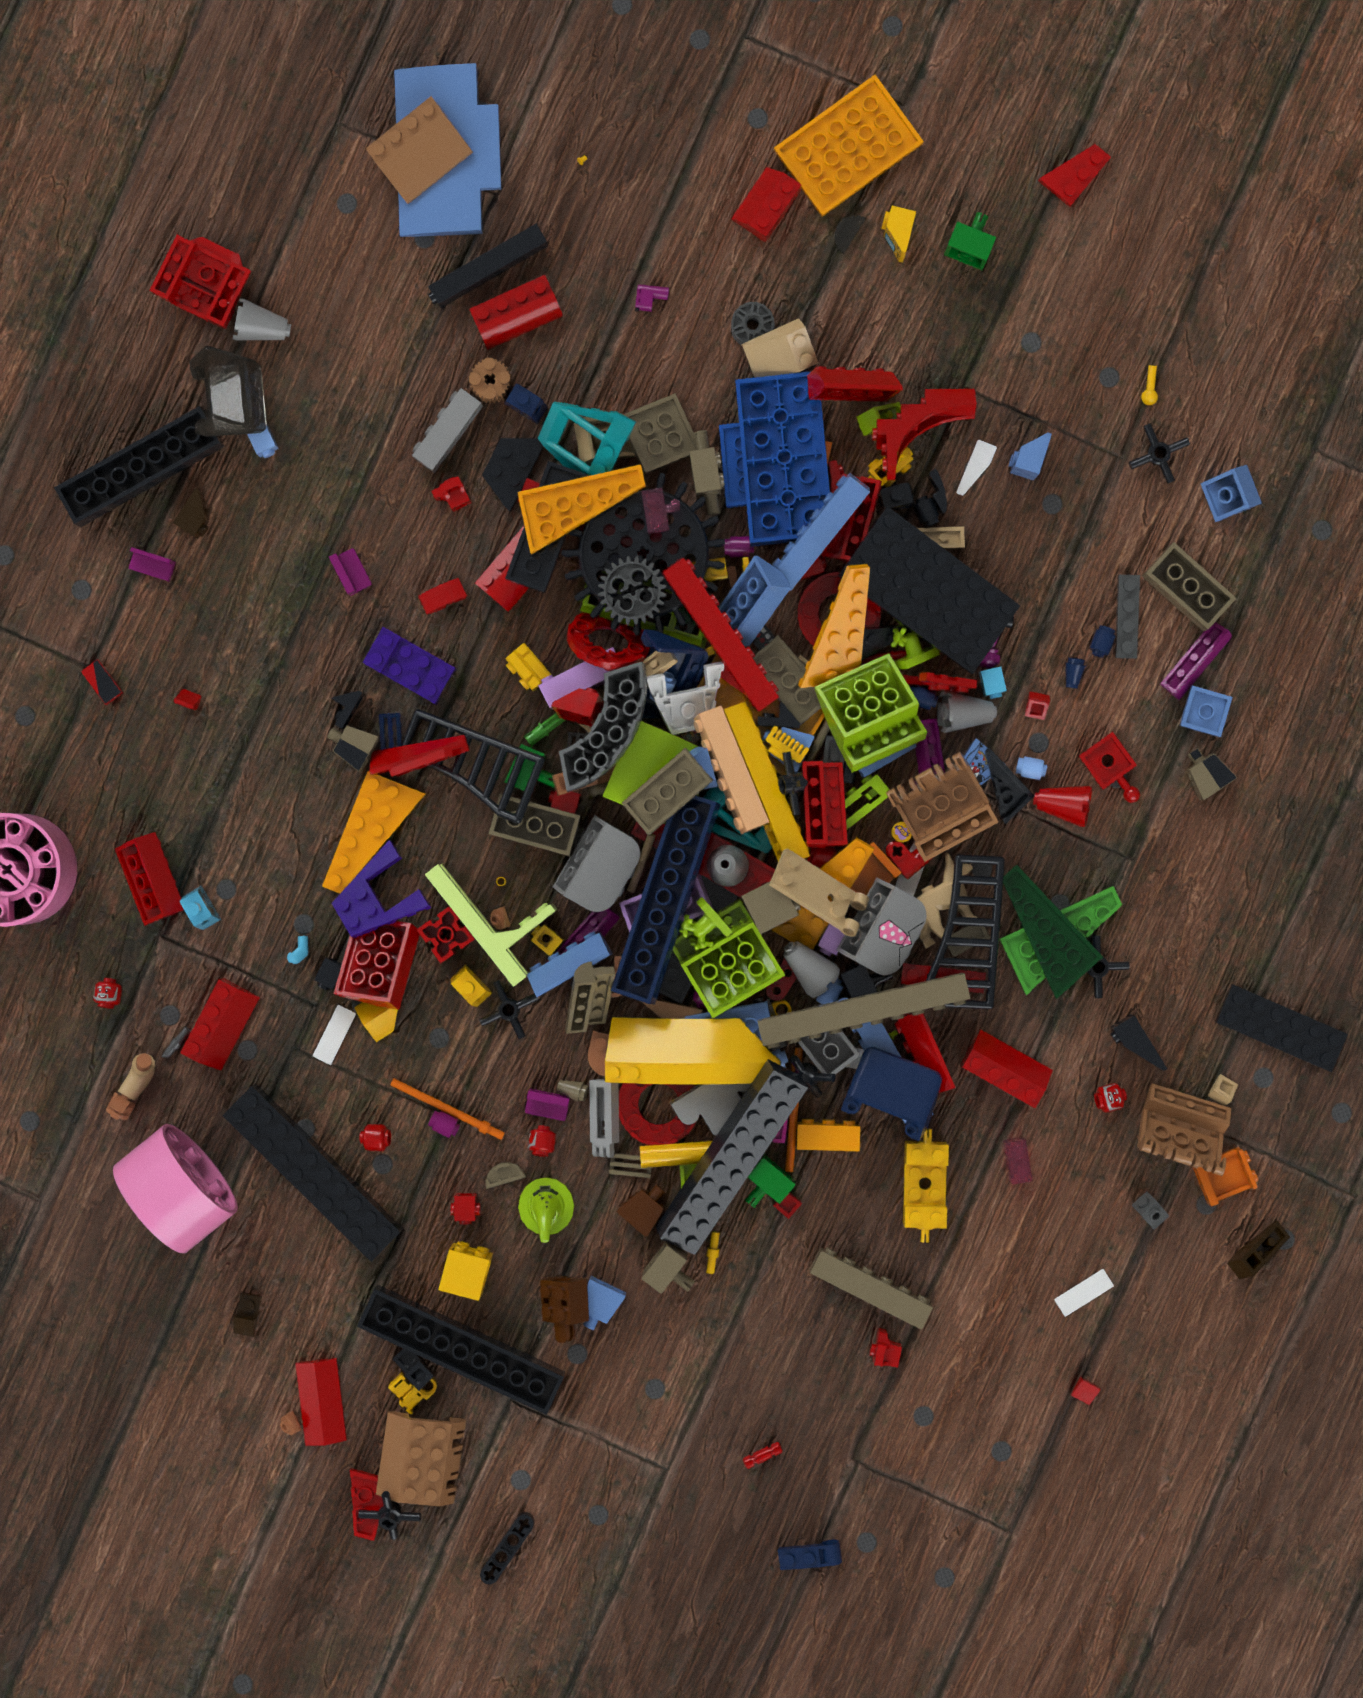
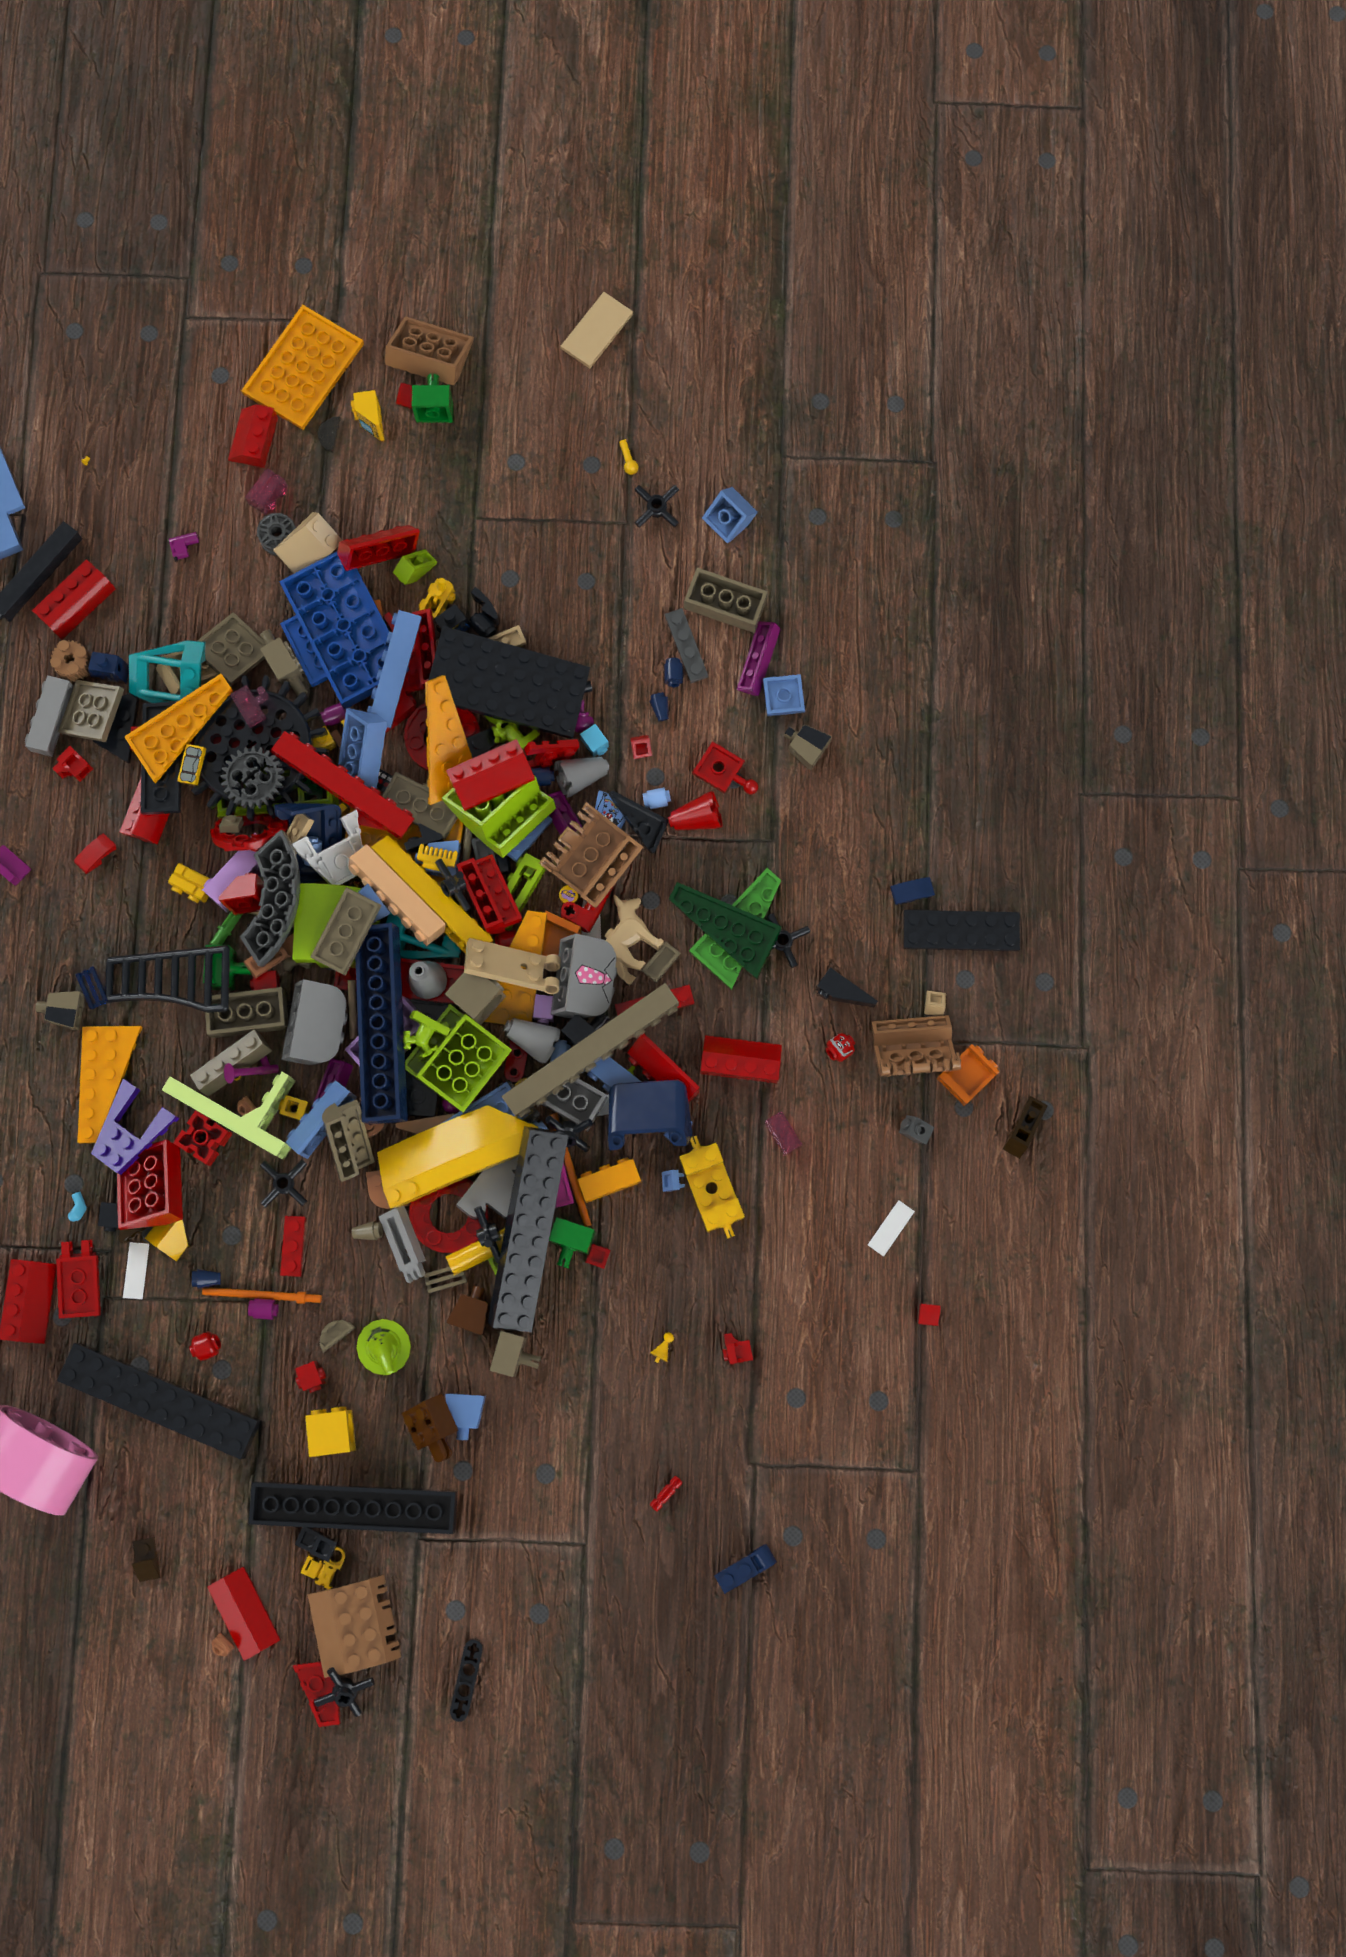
camera: 25 degrees left, 10 degrees down
(275, 1024) = (78, 1281): none -> red tile
(351, 702) = (46, 973): black slope -> none
(398, 1071) = (205, 1278): none -> dark blue cone
(409, 665) = (86, 923): dark purple piece -> none
(416, 756) = (120, 995): red wedge -> none
(470, 986) = (242, 1176): yellow torso -> none
(492, 443) = (91, 710): none -> dark tan plate
(495, 1073) = (293, 1246): none -> red plate
(499, 884) = (231, 1072): none -> magenta piece
(501, 869) = (241, 1055): none -> dark tan brick
(541, 1141) = (356, 1288): red head -> none
(547, 1104) = (350, 1254): magenta panel -> none
(575, 549) = (191, 764): none -> tile
(592, 628) = (231, 824): none -> dark tan plate
(690, 1144) = (488, 1233): none -> black bar
(712, 1252) = (548, 1326): yellow bar -> none
(758, 273) = (266, 491): none -> clear pink brick
(812, 1320) = (661, 1351): none -> yellow piece
(871, 1288) = (701, 1300): dark tan brick -> none
(874, 685) = (490, 774): none -> red slope
(888, 1161) = (670, 1180): none -> medium blue tile
(914, 419) = (442, 553): red arch -> none
(945, 223) = (404, 395): none -> red slope
(978, 462) = (511, 570): white sticker -> none
(988, 180) = (428, 350): none -> medium nougat slope
(994, 923) = (677, 936): black bar -> none
(1030, 457) = (549, 550): medium blue slope -> none
(1076, 174) = (498, 321): red wing -> none
(1175, 227) = (596, 330): none -> tan tile
(1249, 968) = (912, 890): none -> dark blue slope

